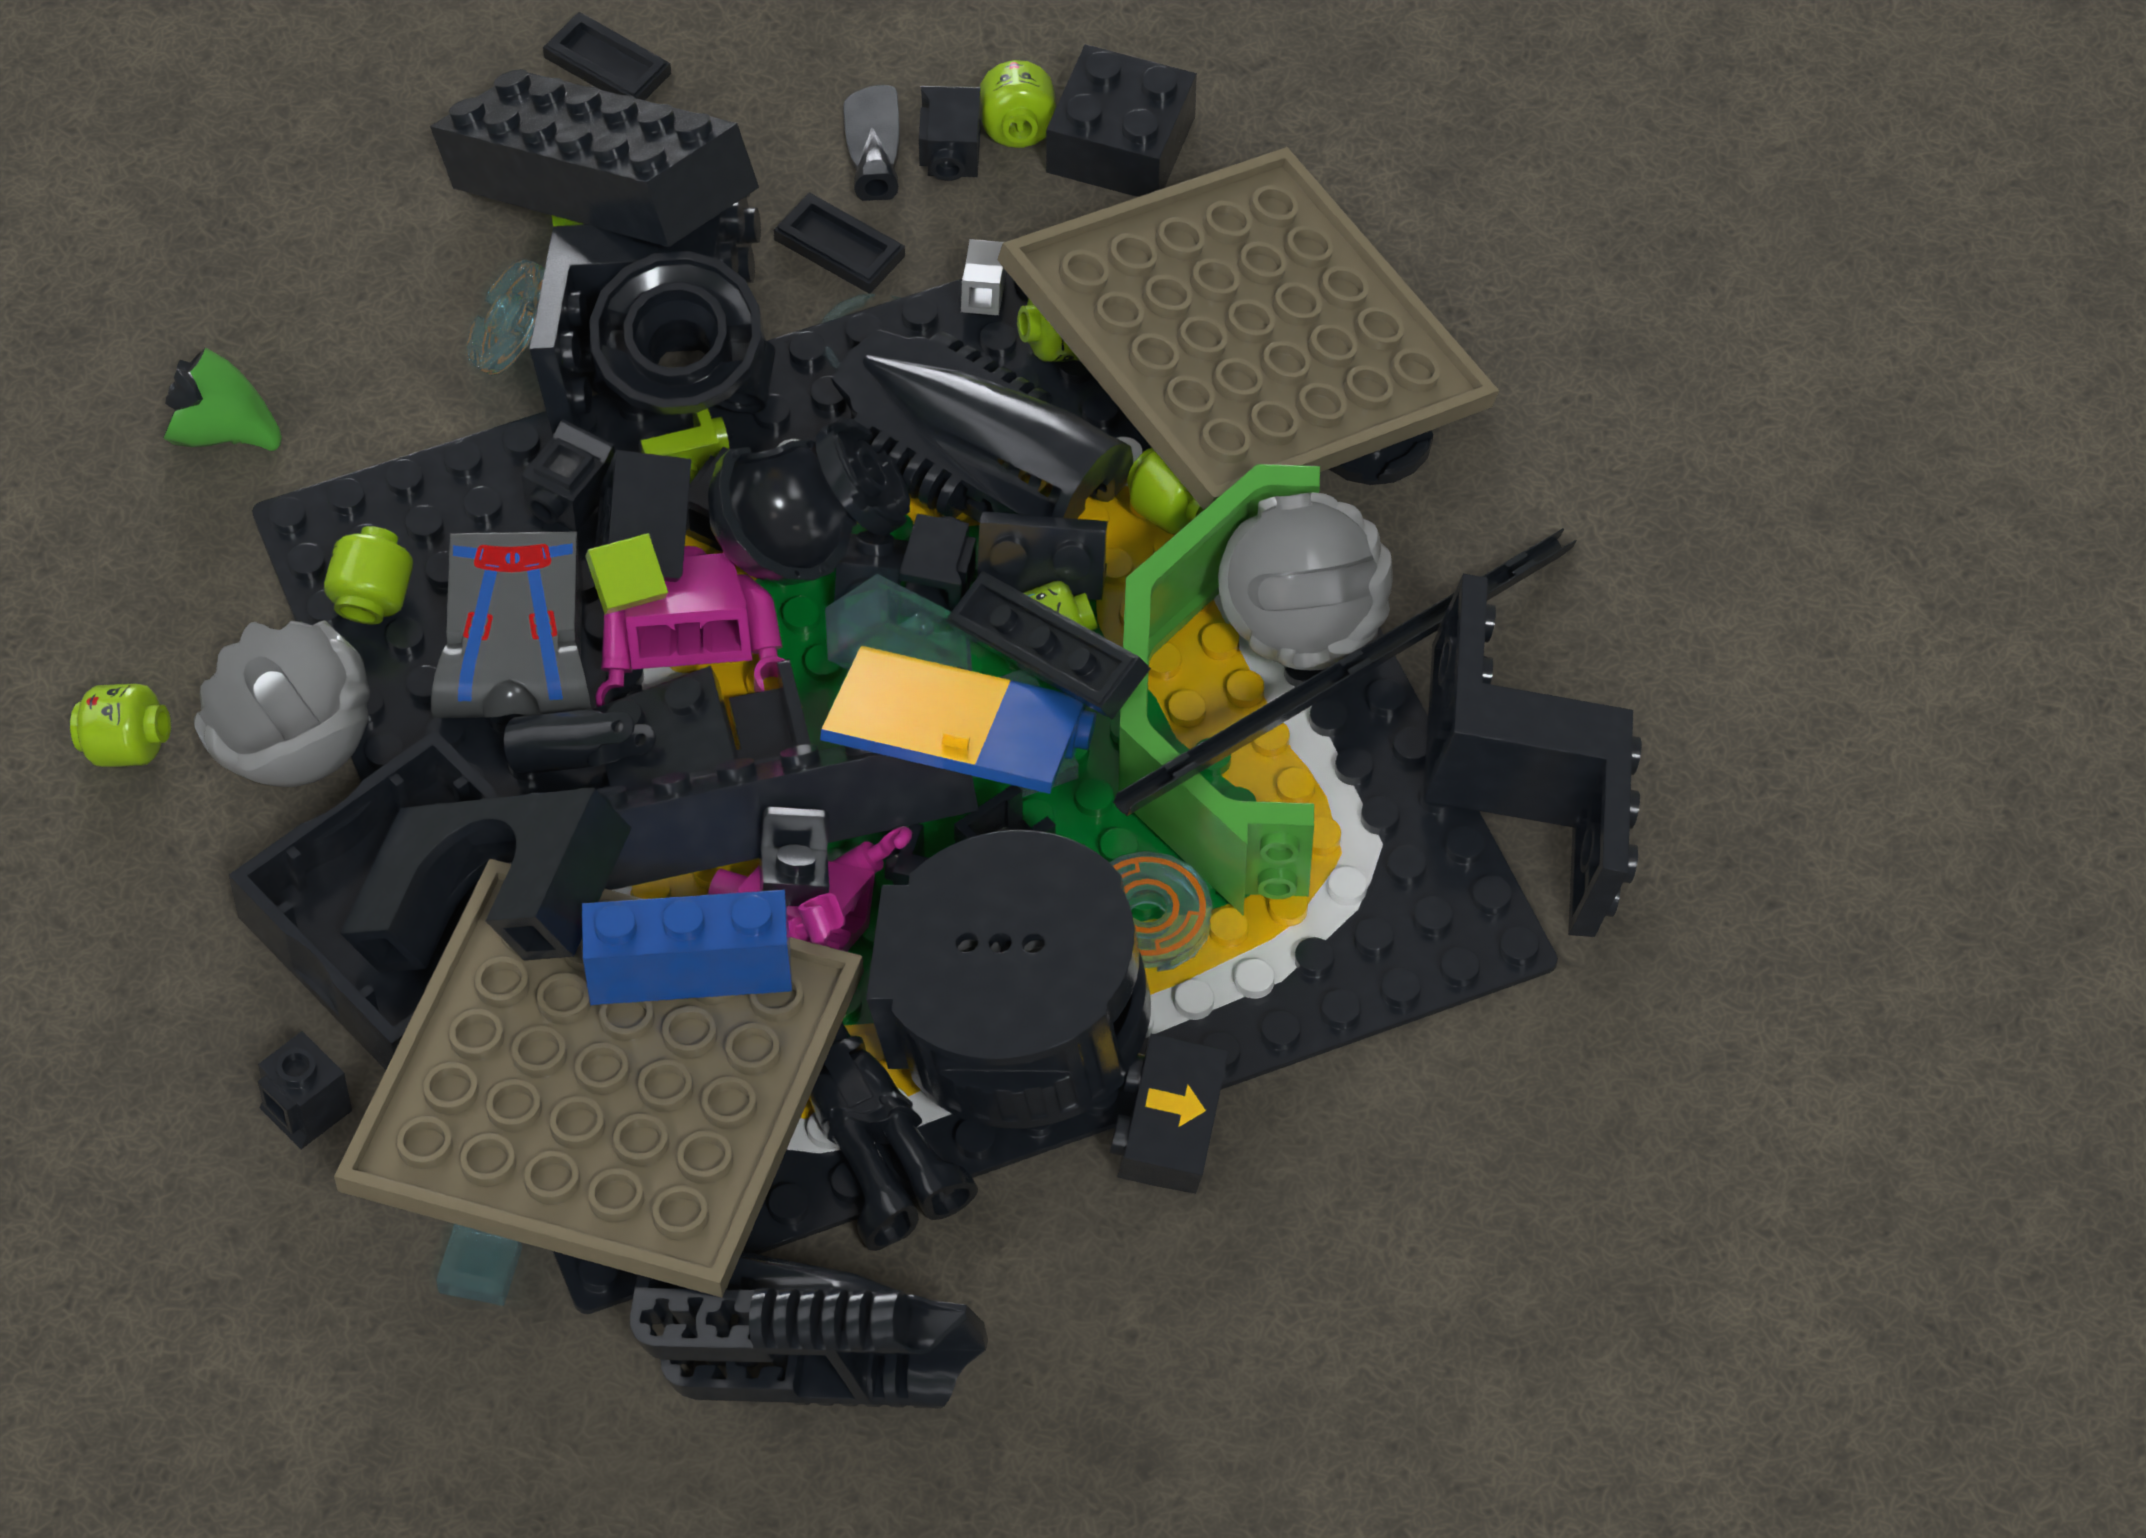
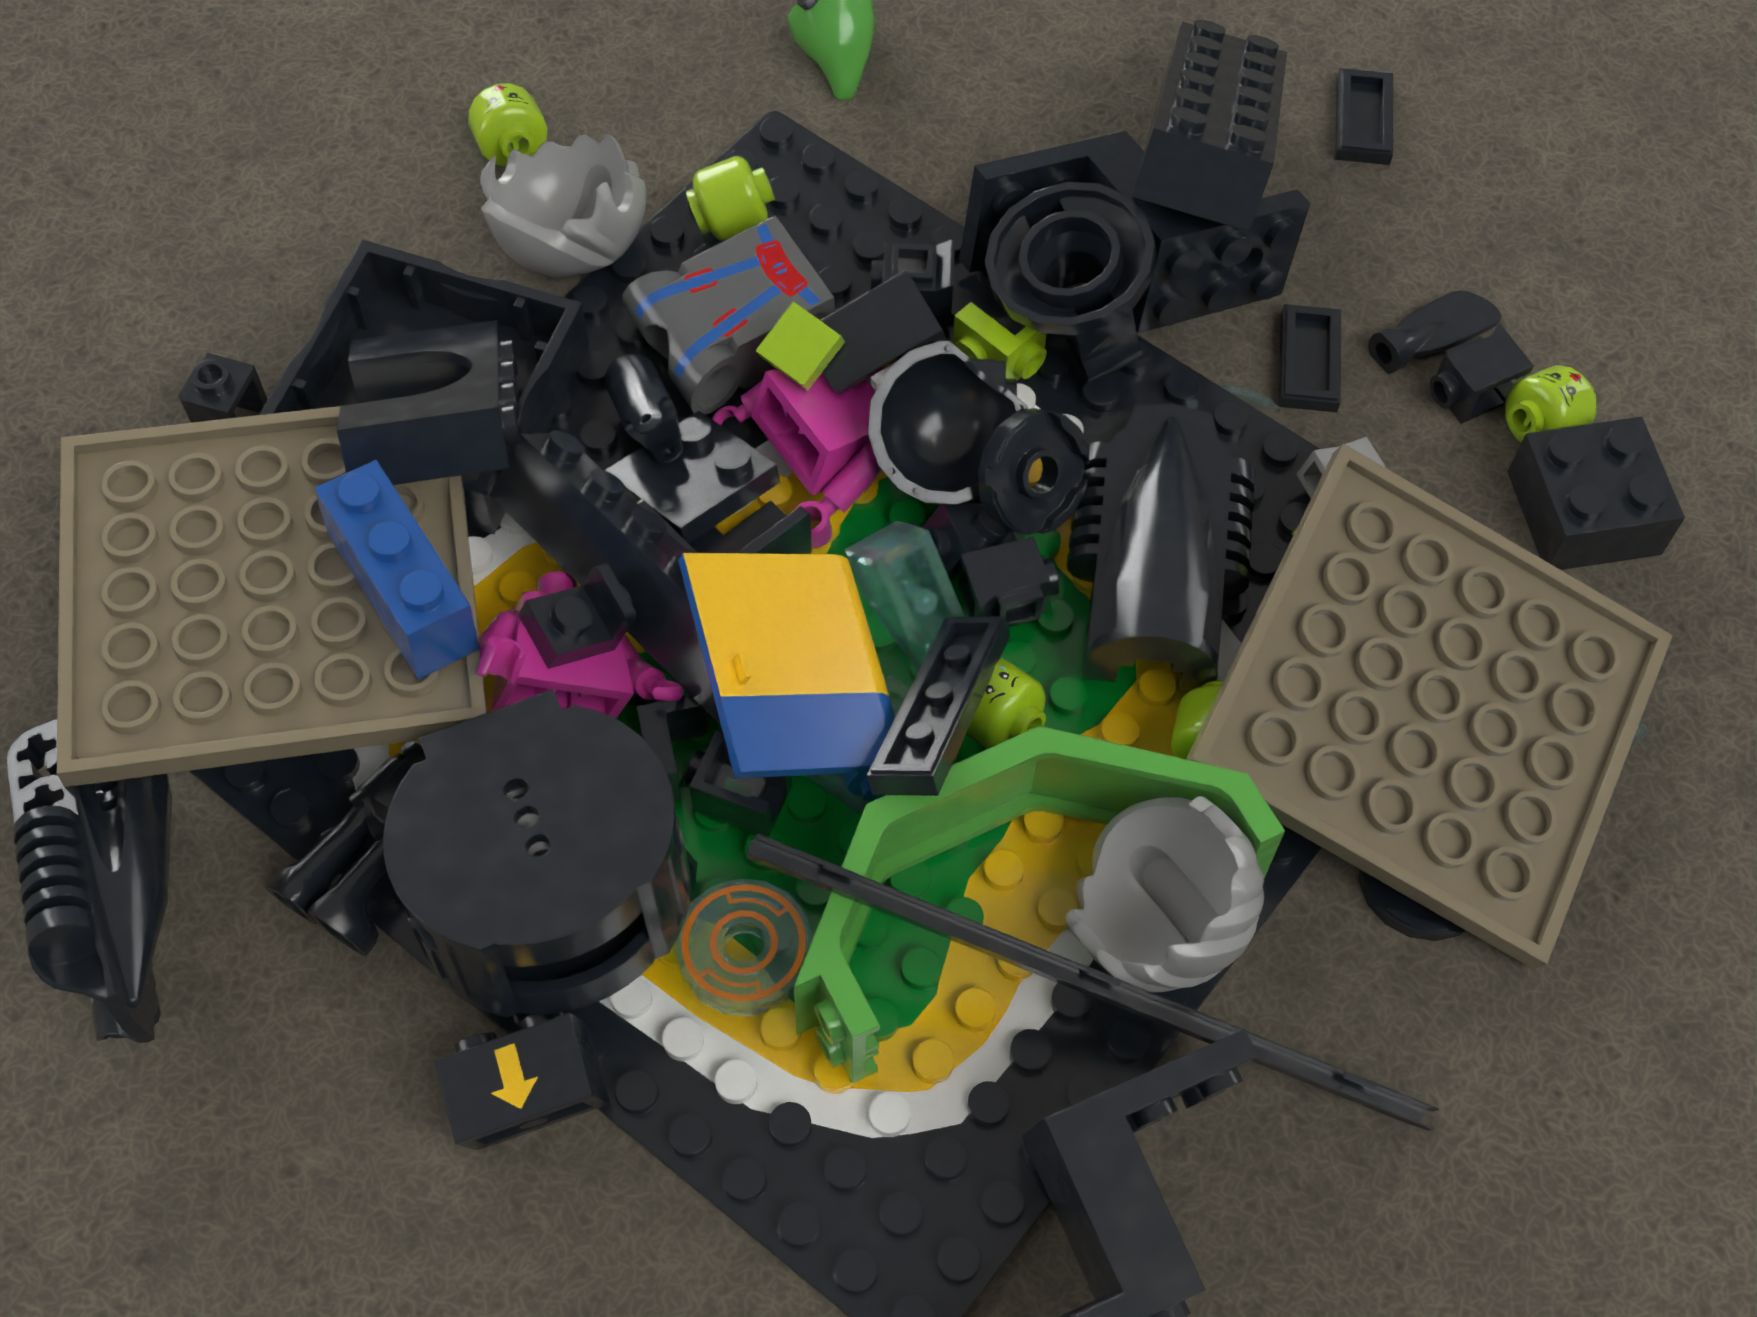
camera: 60 degrees right, 5 degrees up
(1042, 550) = (1058, 654): black bracket -> none

